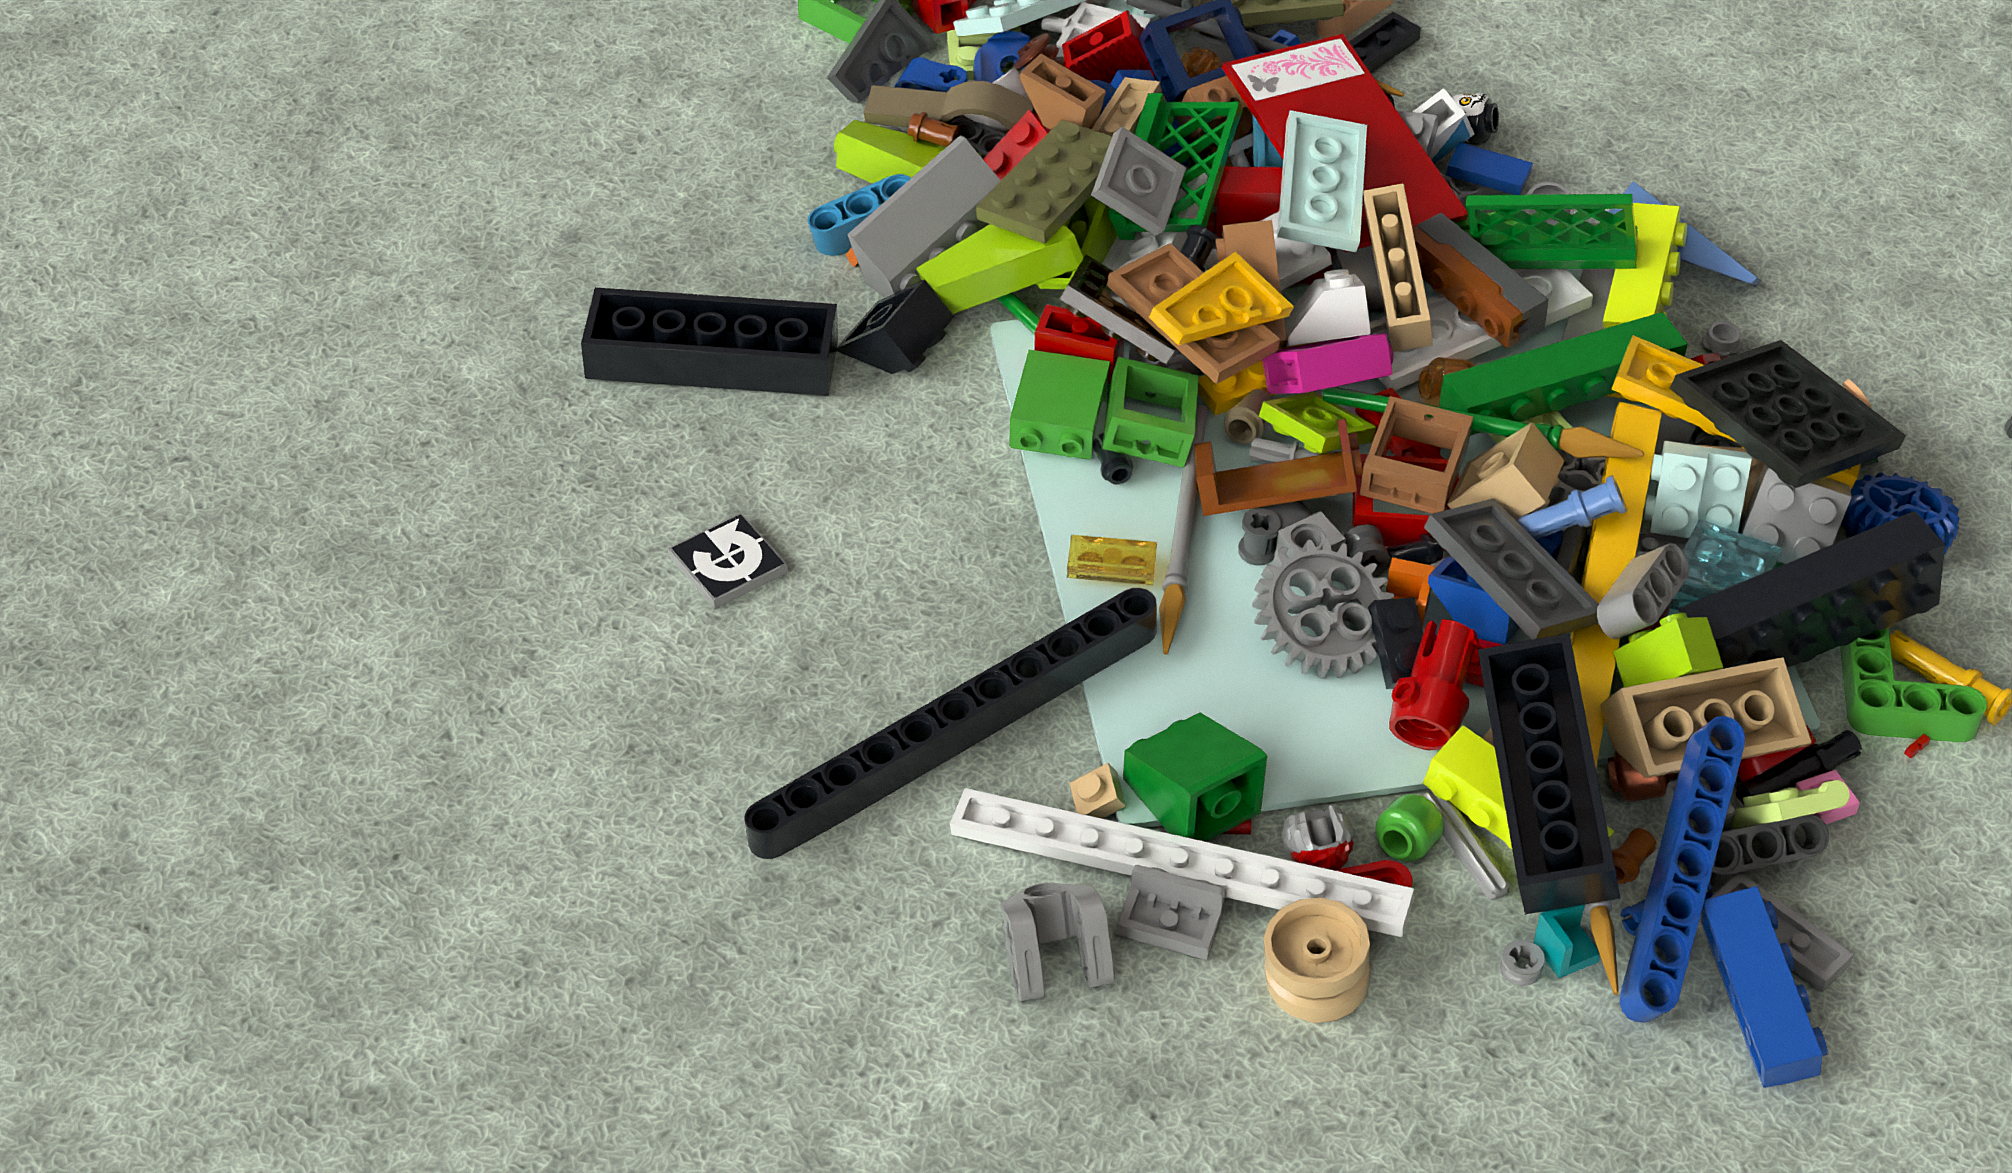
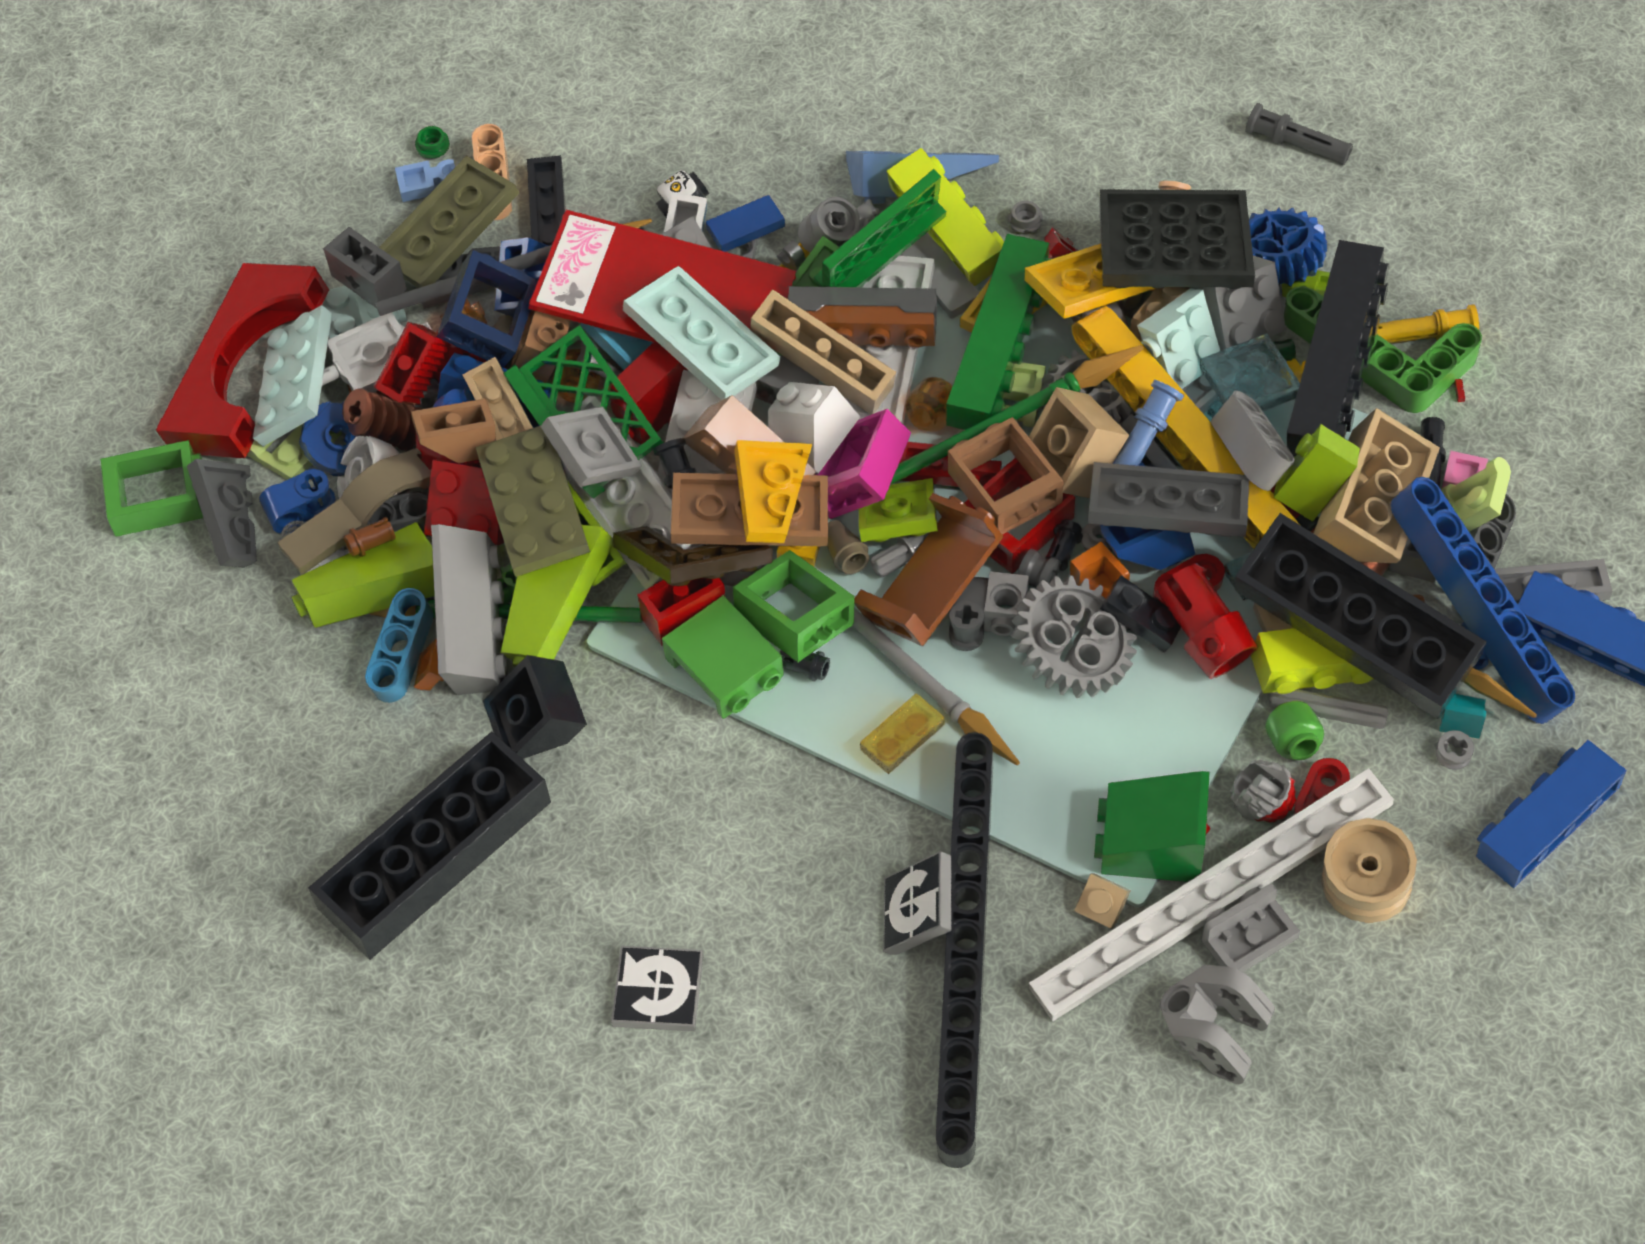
camera: 45 degrees left, 10 degrees up
(961, 665) = (917, 903): none -> tile
(1530, 1070) = (1549, 813): none -> blue brick

